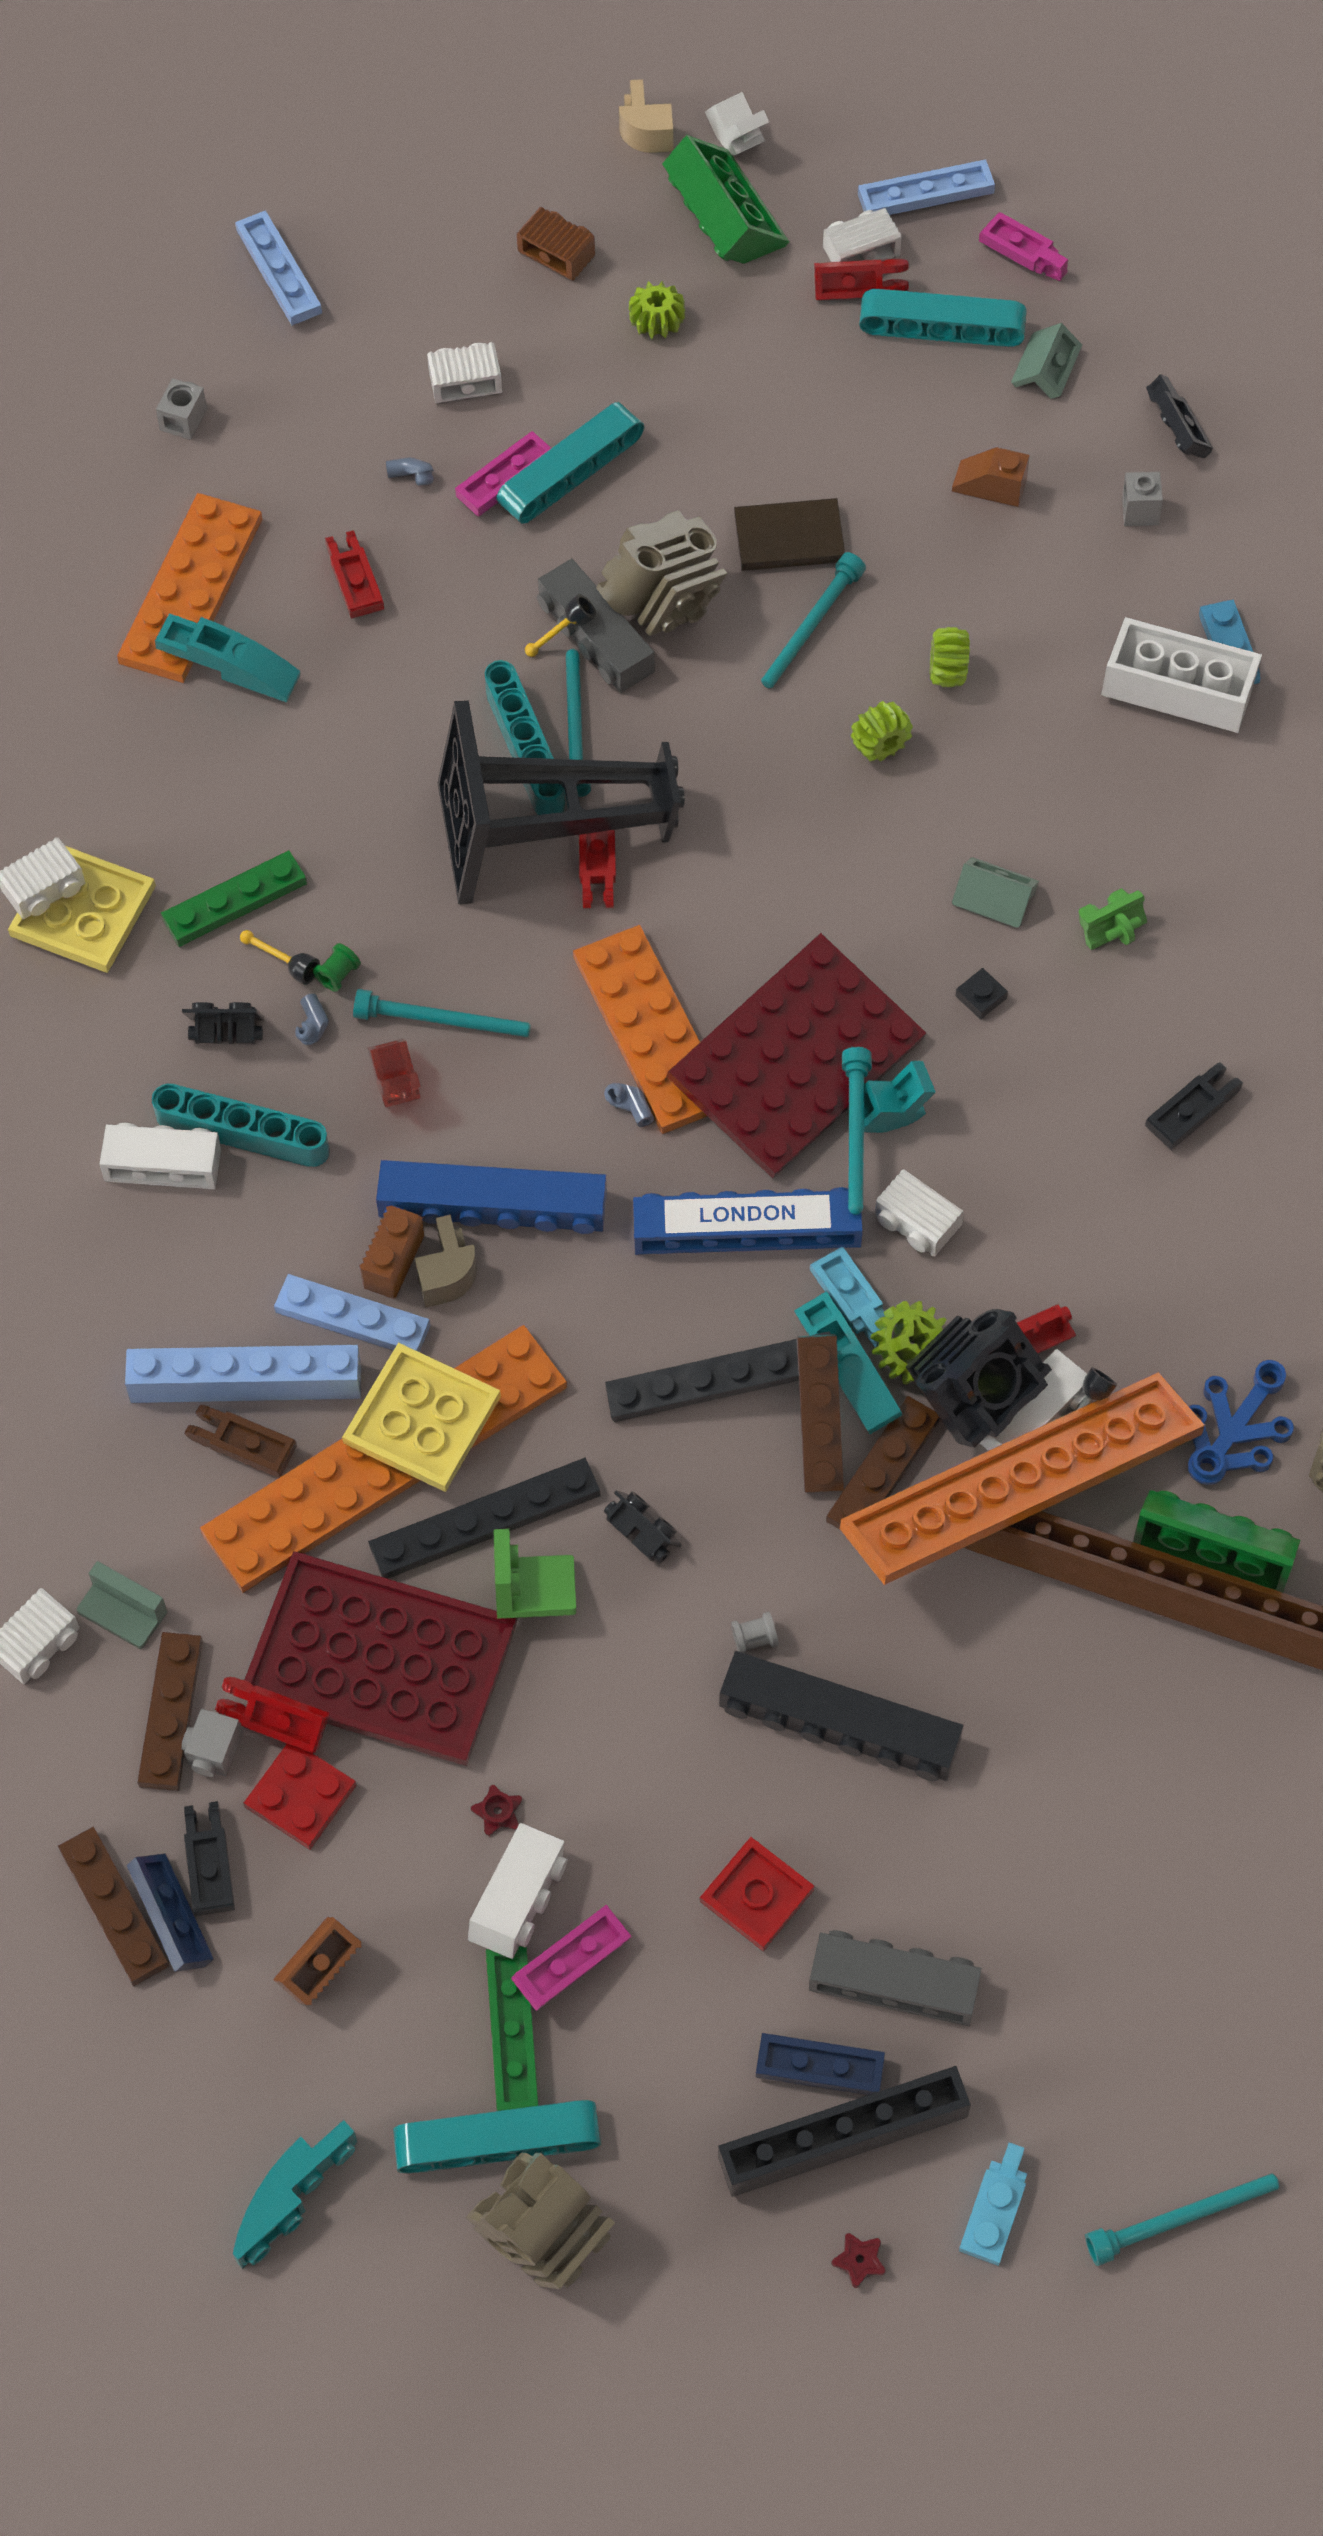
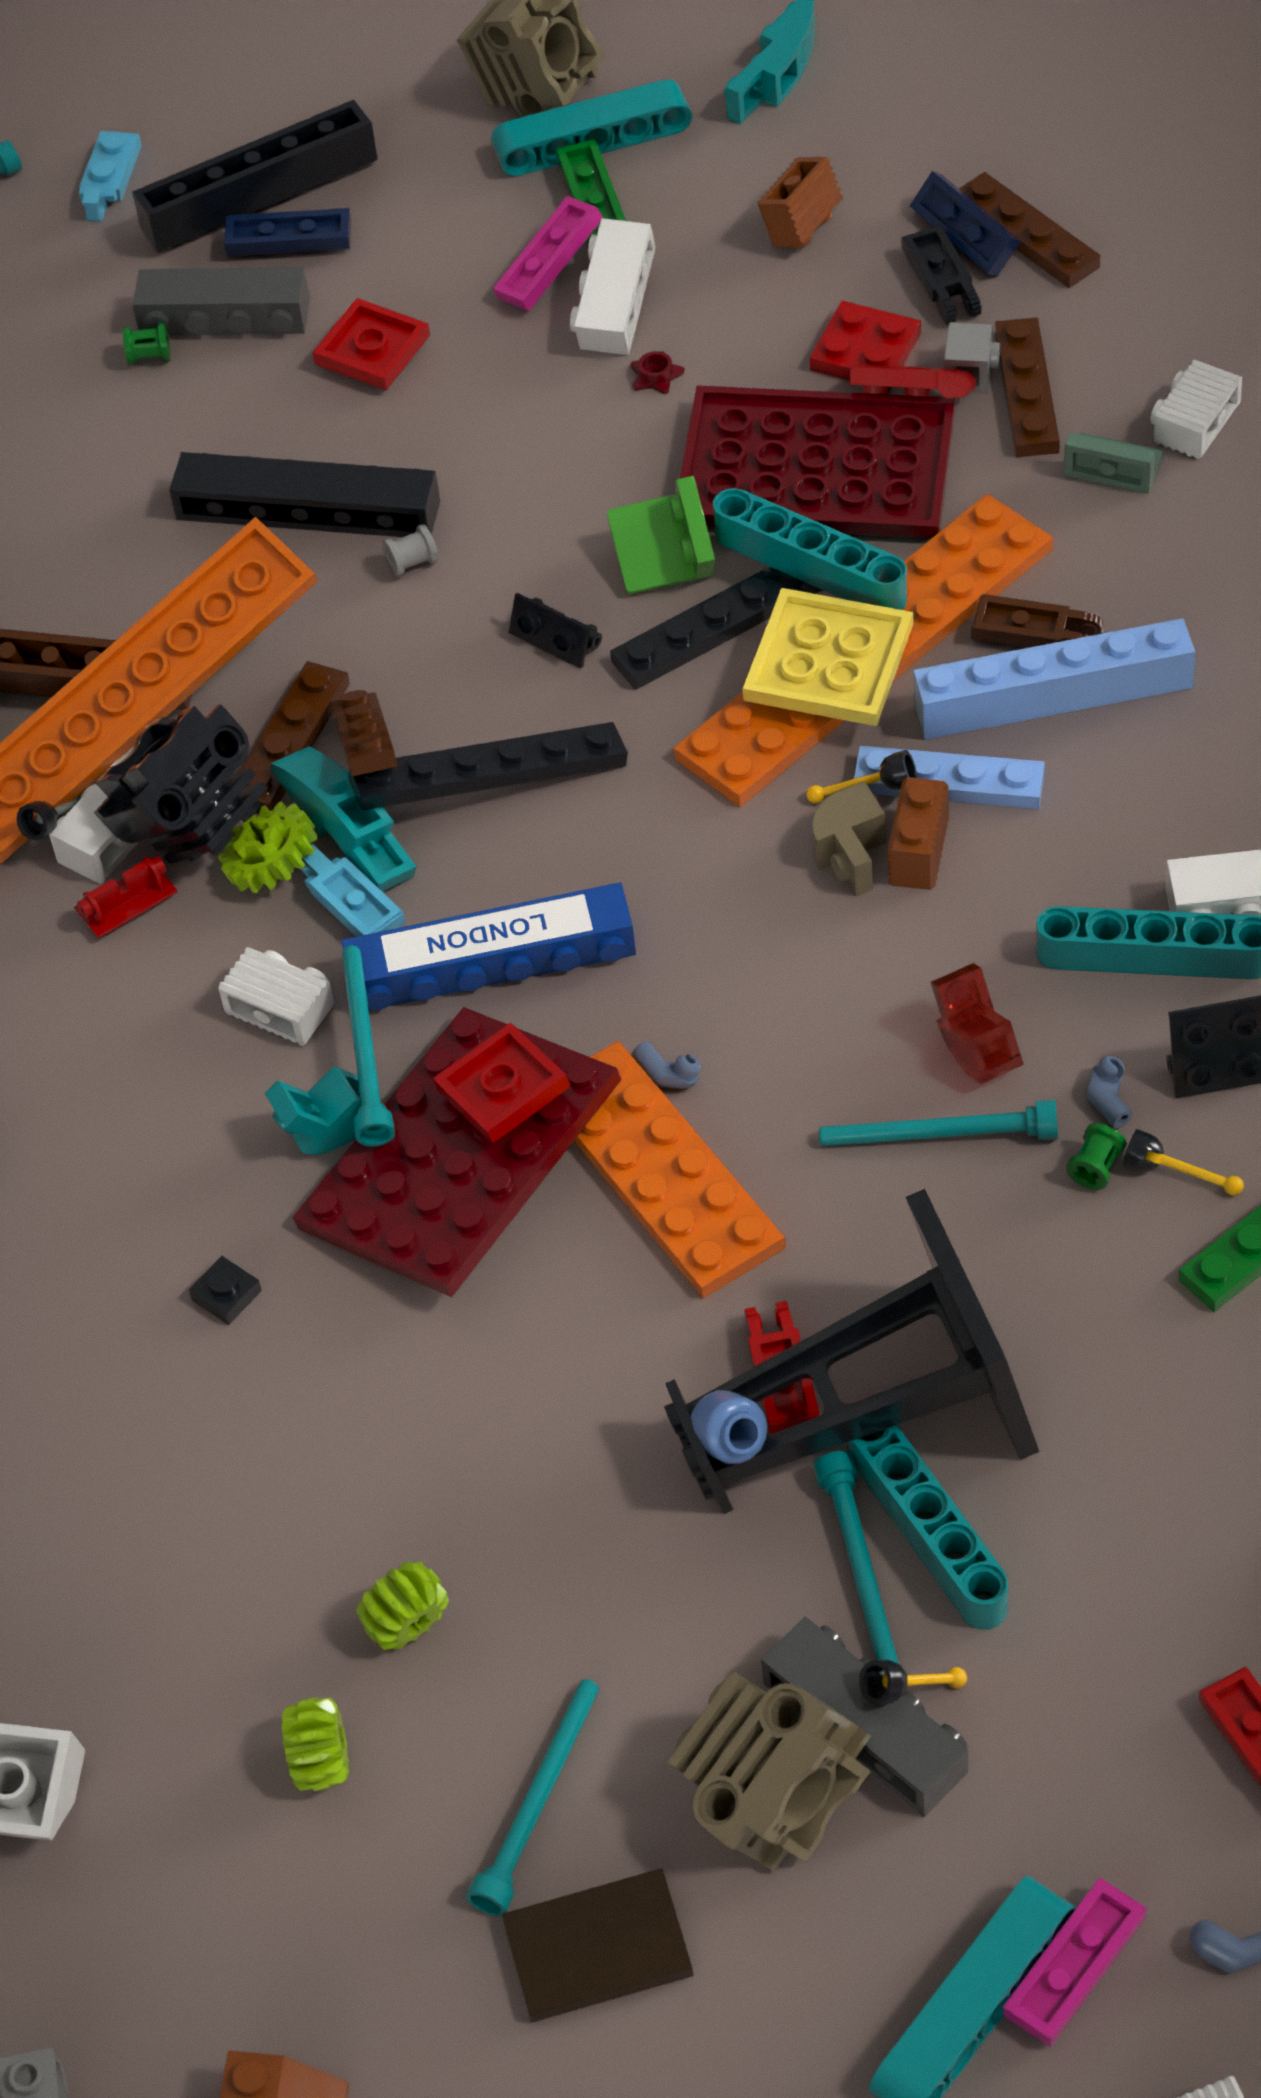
camera: 175 degrees right, 10 degrees down
(396, 1300) = (892, 772): none -> hinge
(416, 1540) = (809, 550): none -> teal beam
(494, 1195) = (813, 919): blue brick -> none
(644, 769) = (729, 1426): none -> medium blue head
(756, 1063) = (501, 1082): none -> red plate
(859, 2271) = (232, 115): dark red plate -> none
(972, 1942) = (146, 343): none -> green bush
(994, 891) = (215, 1429): sand green panel -> none
(1115, 920) = (32, 1421): bright green hips -> none

